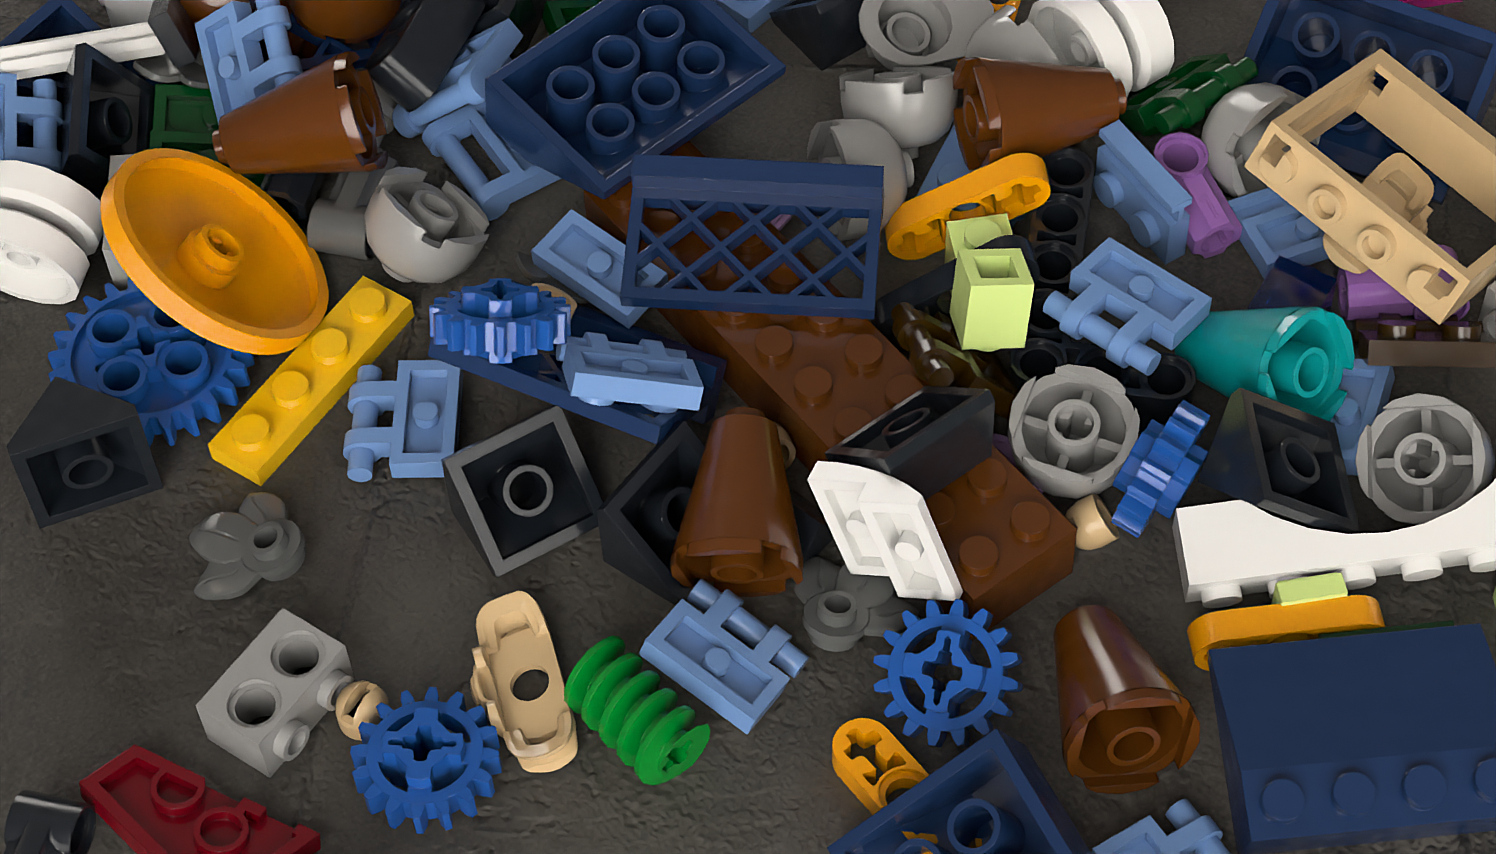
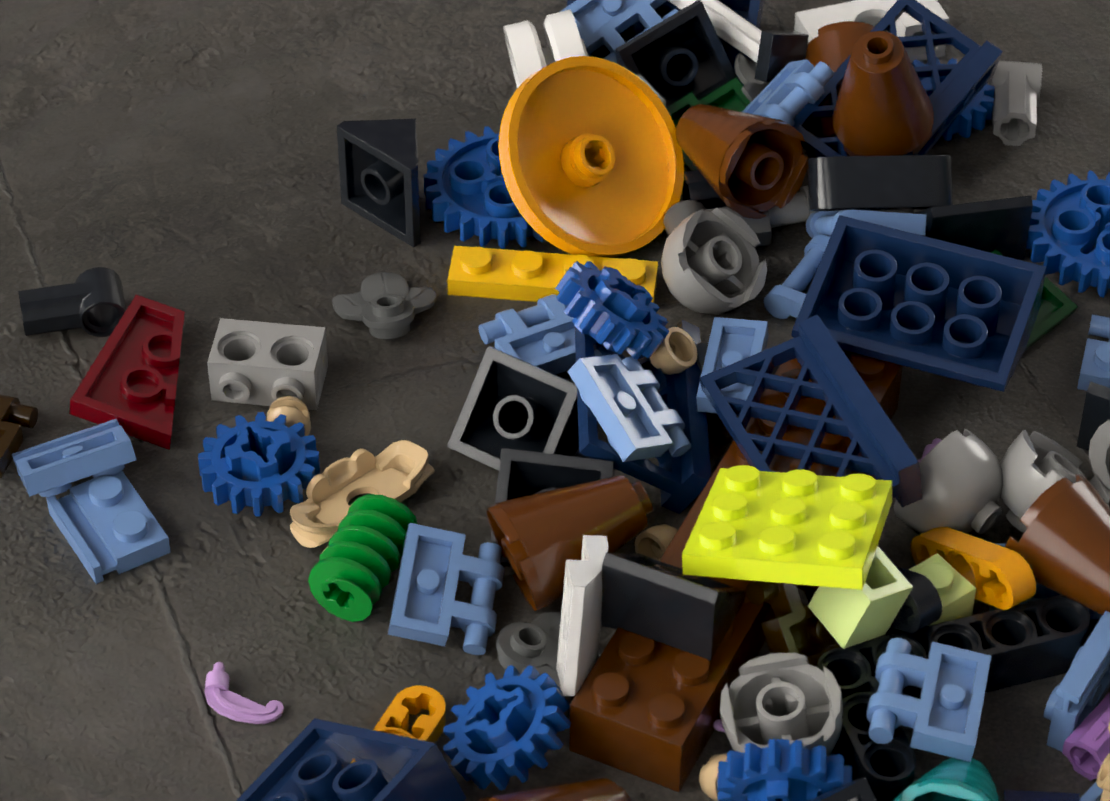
camera: 60 degrees right, 10 degrees down
(906, 305) = (789, 527): none -> neon yellow plate

